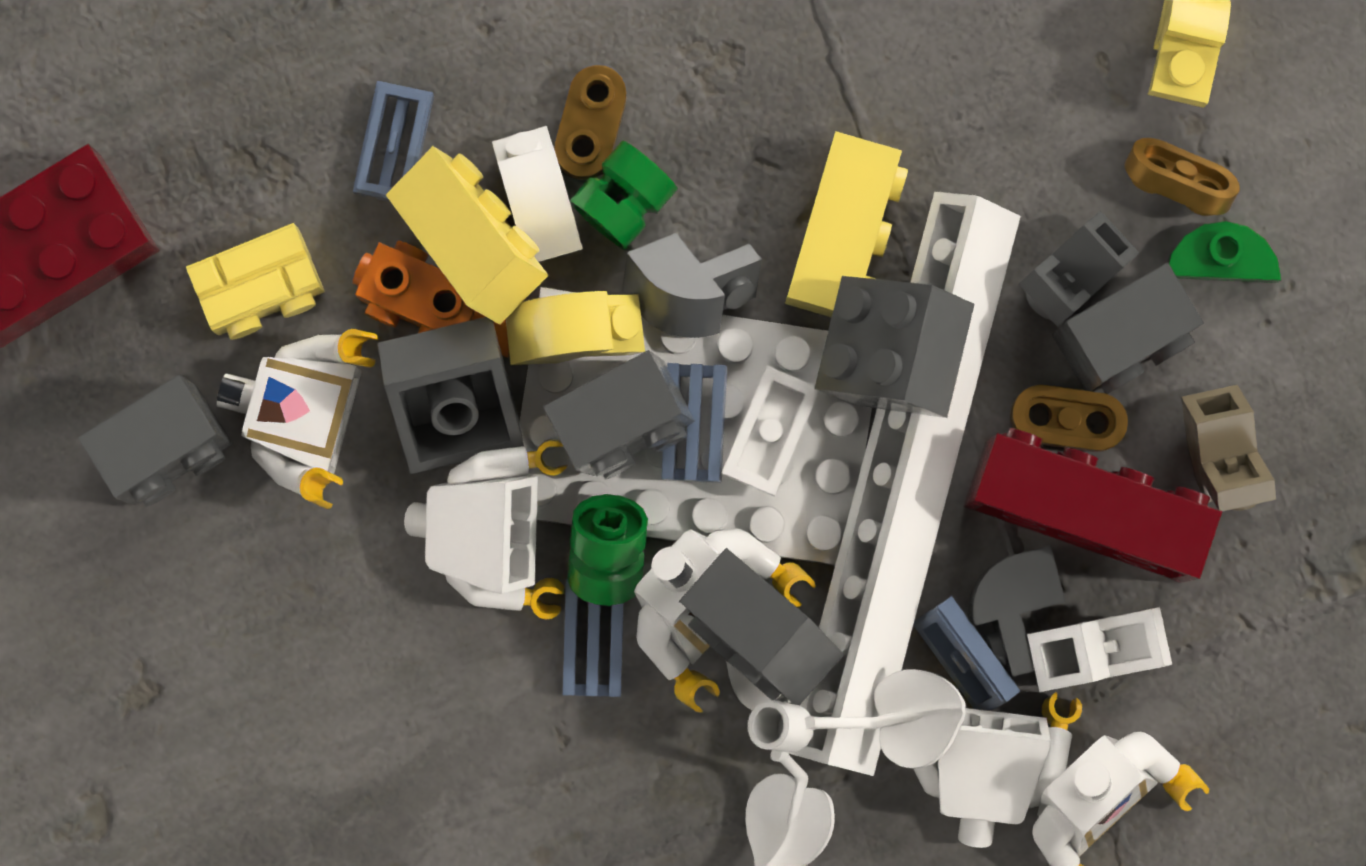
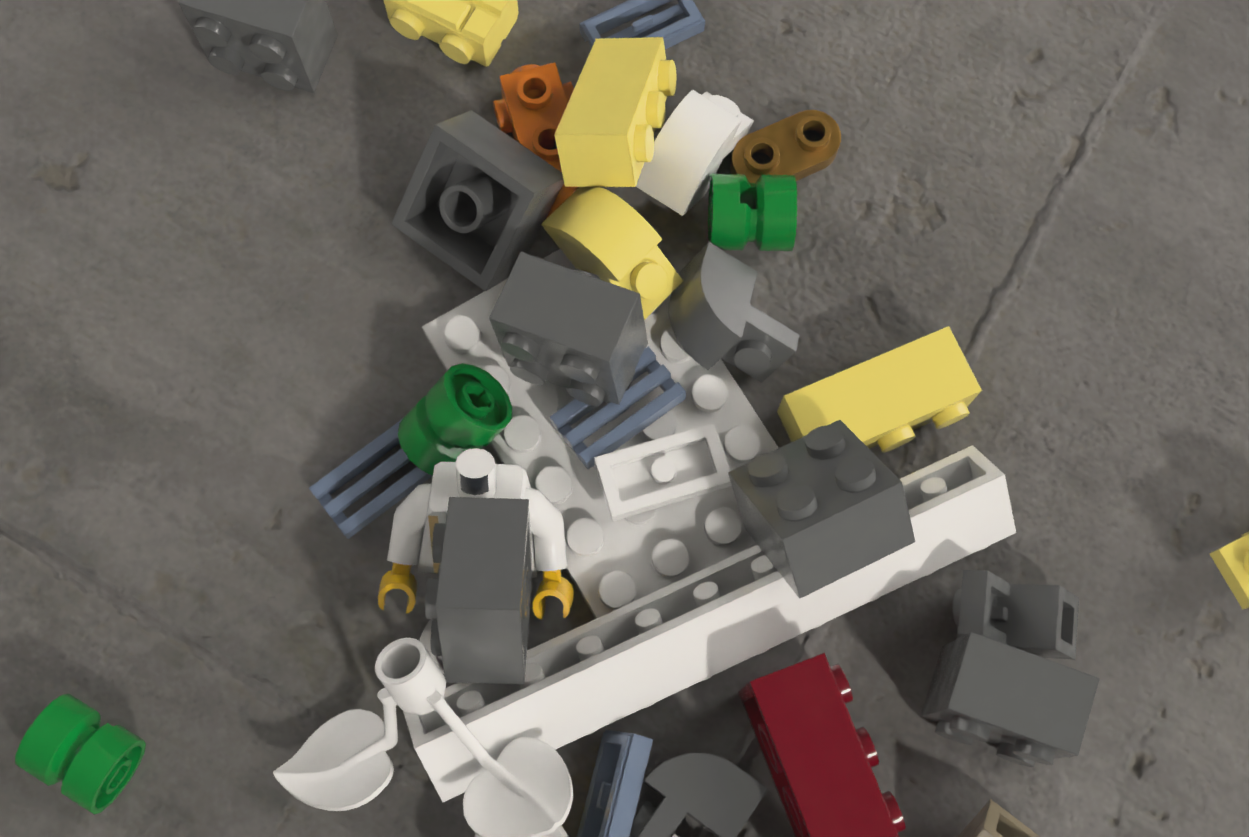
camera: 50 degrees right, 10 degrees down
(300, 409) = (375, 110): white torso -> none
(485, 529) = (392, 314): white torso -> none
(1068, 417) = (892, 713): pearl gold plate -> none
(1181, 176) = (1174, 657): pearl gold plate -> none
(1226, 254) = (1140, 737): green plate -> none

